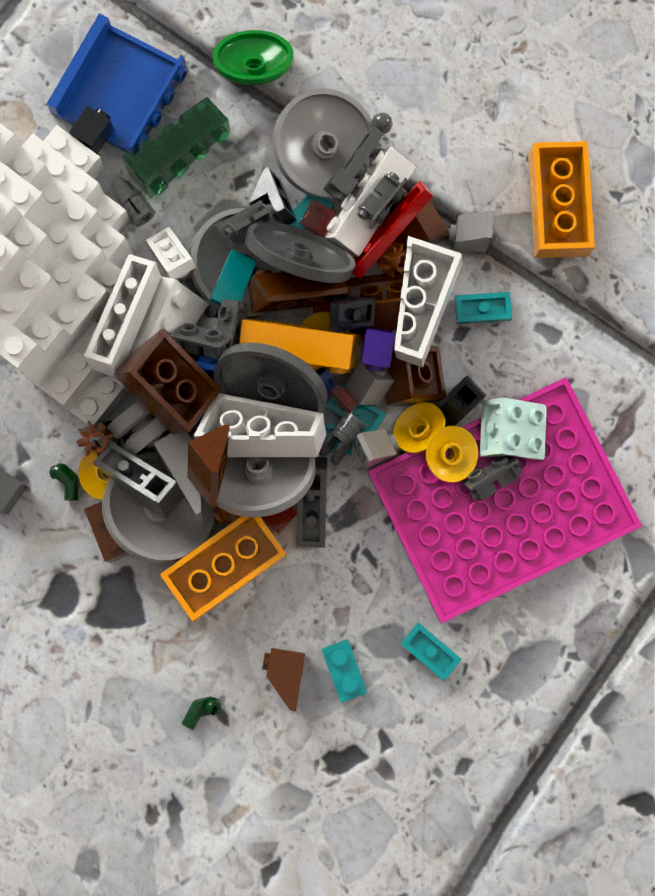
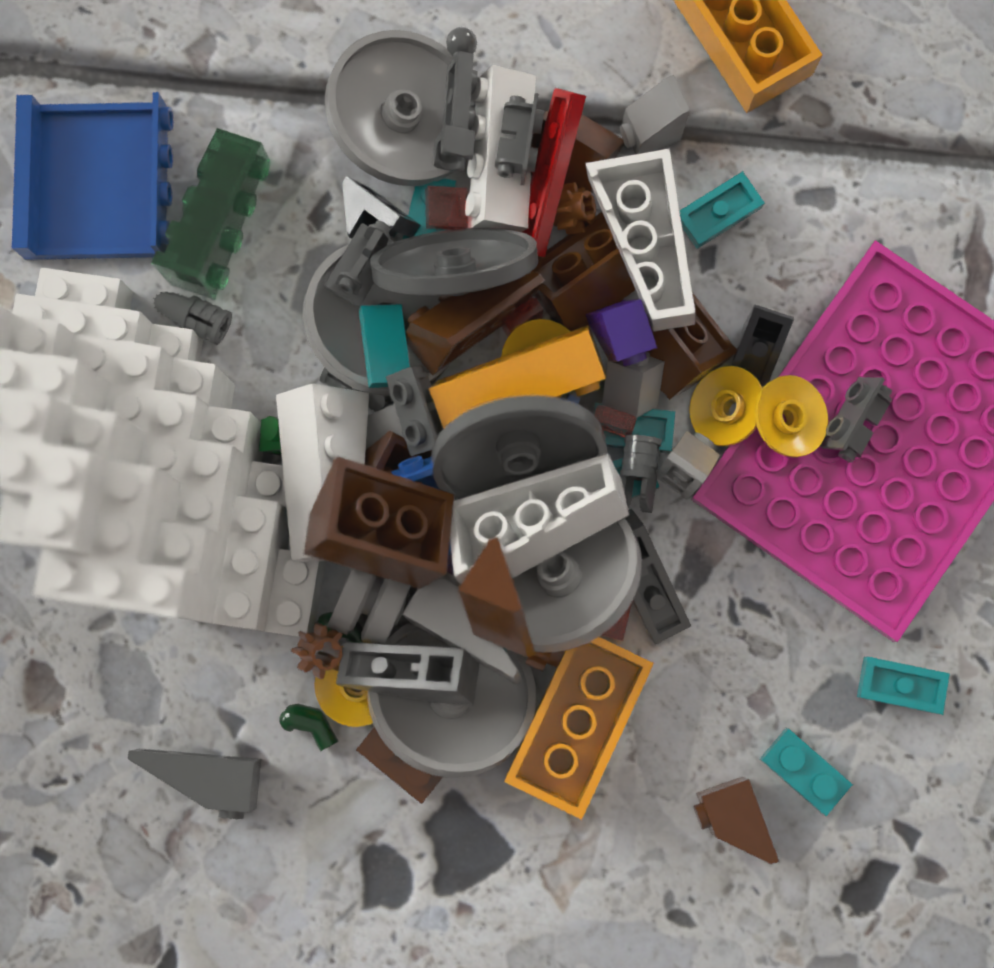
camera: 20 degrees left, 0 degrees up
(93, 129) = (91, 247): black brick -> none
(123, 315) = (271, 467): white brick -> none
(171, 253) = (284, 354): white plate -> none
(193, 337) = (406, 437): dark grey hinge -> none
(199, 708) = (649, 924): dark green arm -> none
(253, 57) = (248, 47): green dish -> none
(351, 313) = (563, 304): black slope -> none
(513, 429) = (848, 342): light aqua bracket -> none

